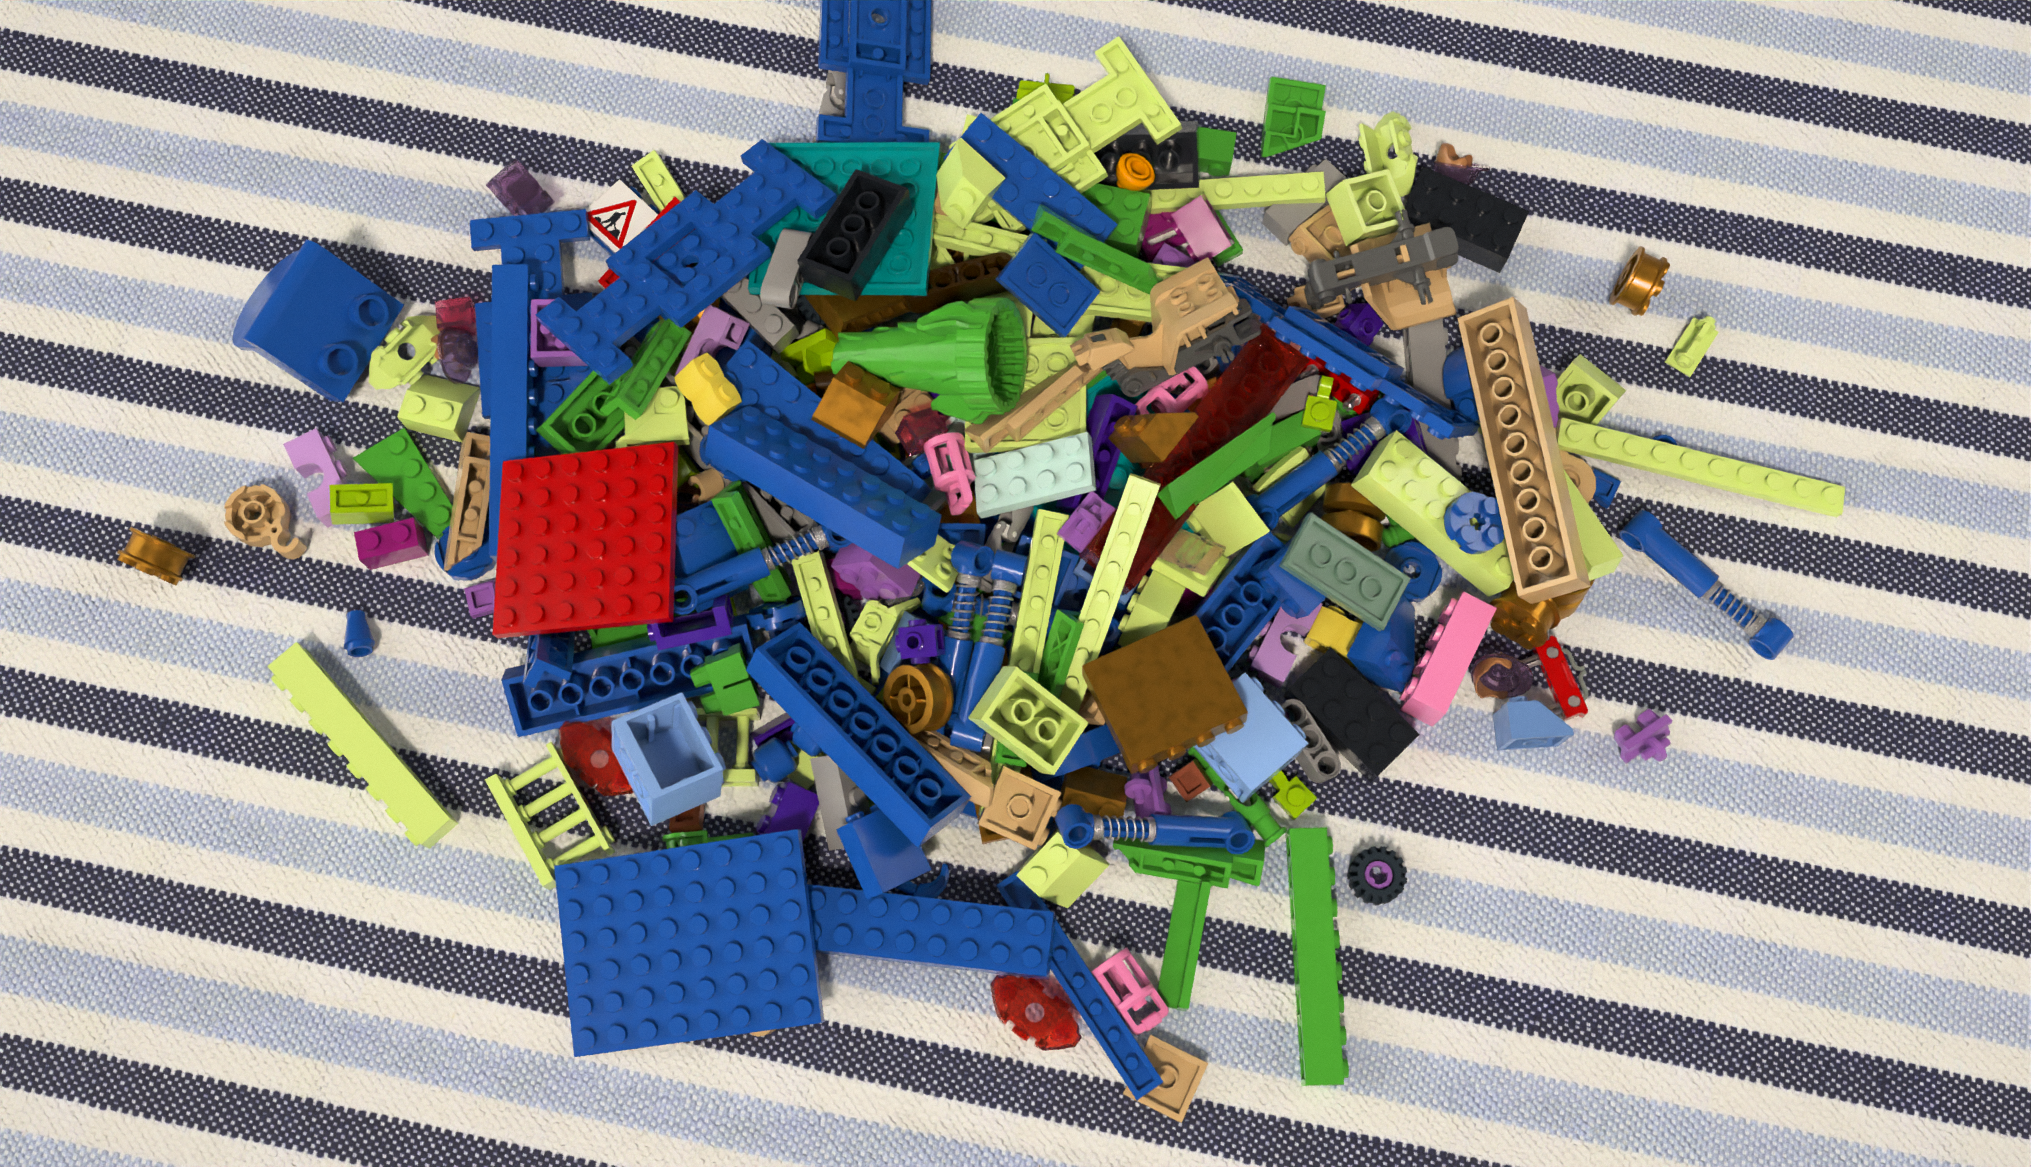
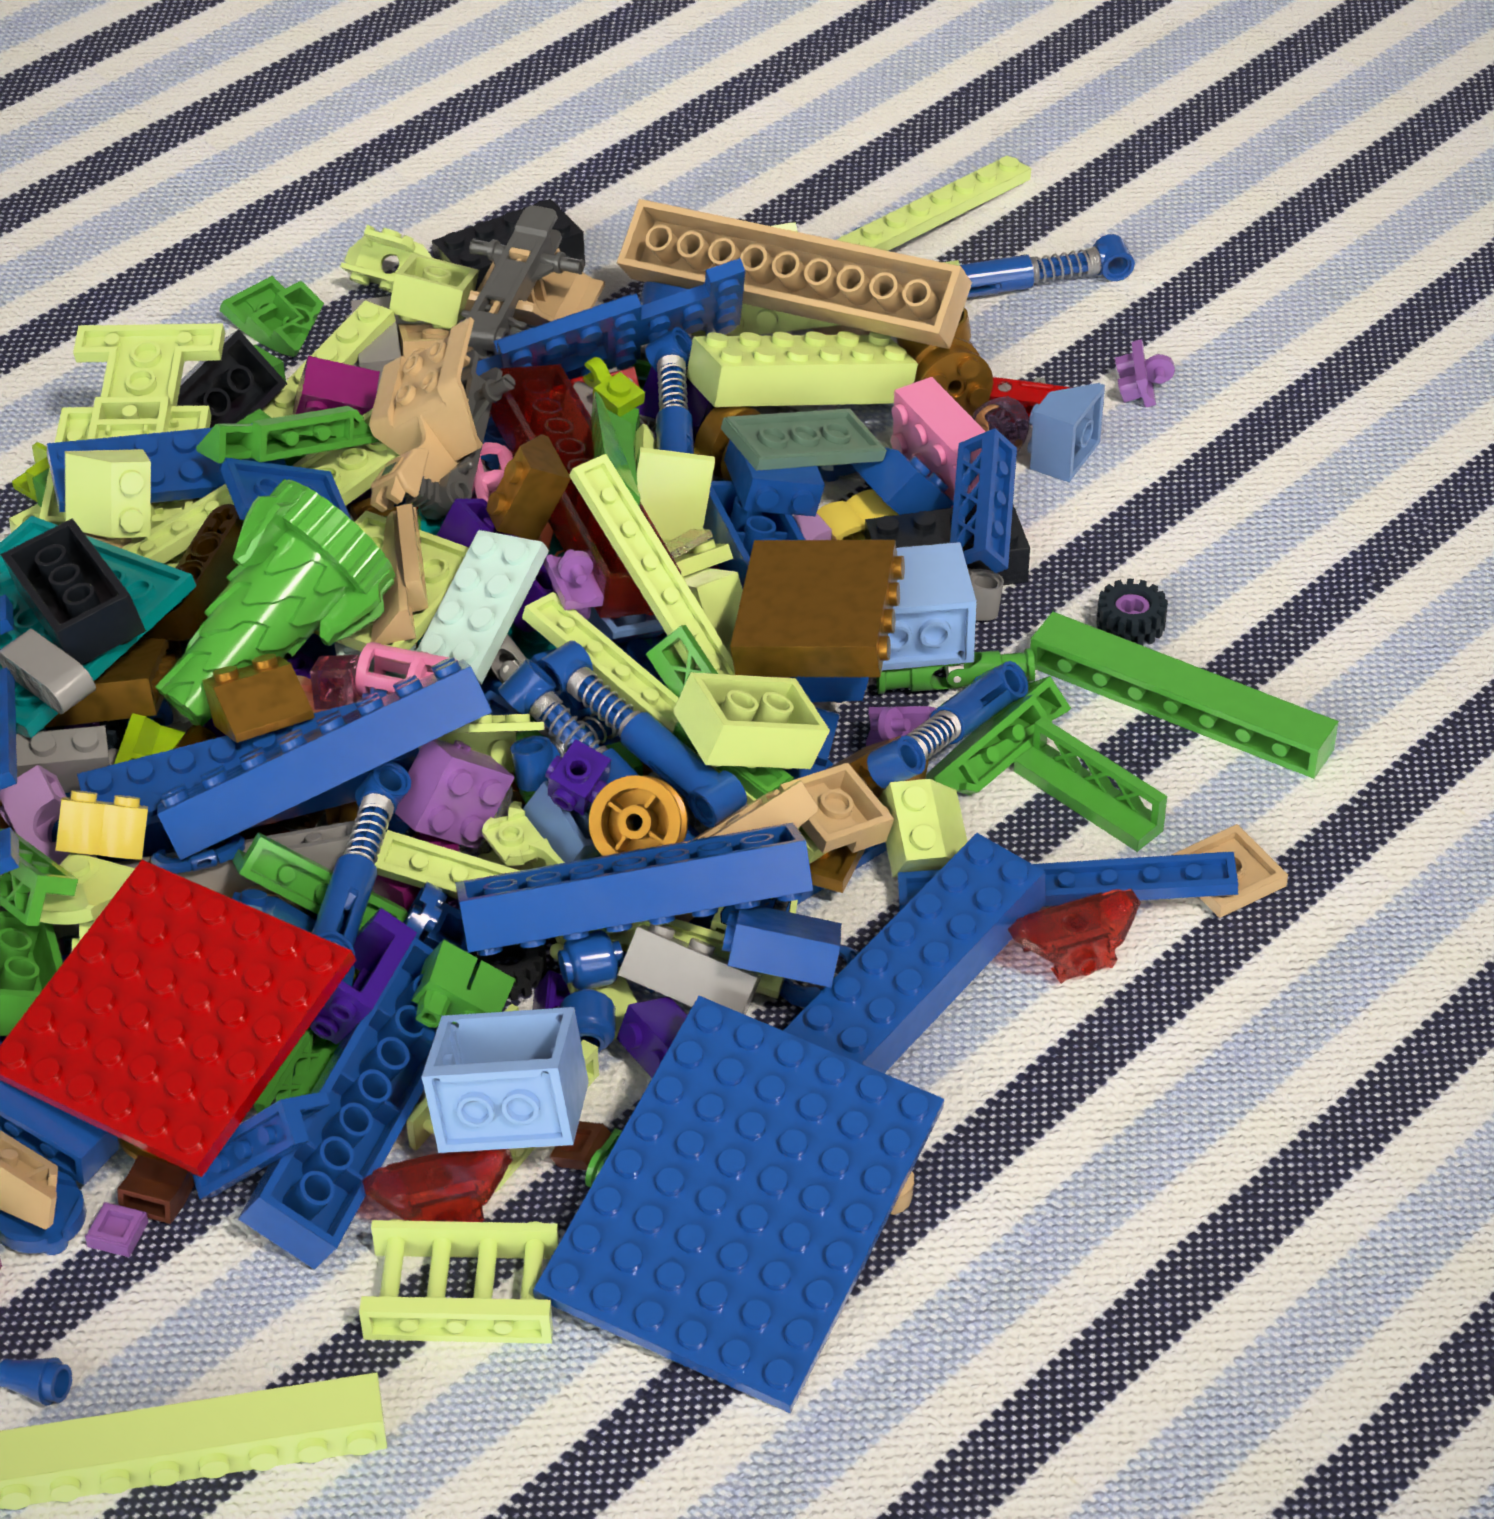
camera: 55 degrees left, 30 degrees down
(1132, 994) = (1120, 837): bright pink piece -> none
(1134, 172) = (226, 406): light orange brick -> none
(1191, 780) = (912, 692): copper plate -> none
(1291, 795) = (997, 636): lime plate -> none
(1385, 729) = (992, 496): none -> blue fence
(1457, 168) = (437, 227): piece -> none
(1487, 514) = (832, 335): plate -> none
(1639, 281) = (690, 169): pearl gold wheel -> none
(1693, 345) = (781, 179): yellowish green hinge -> none

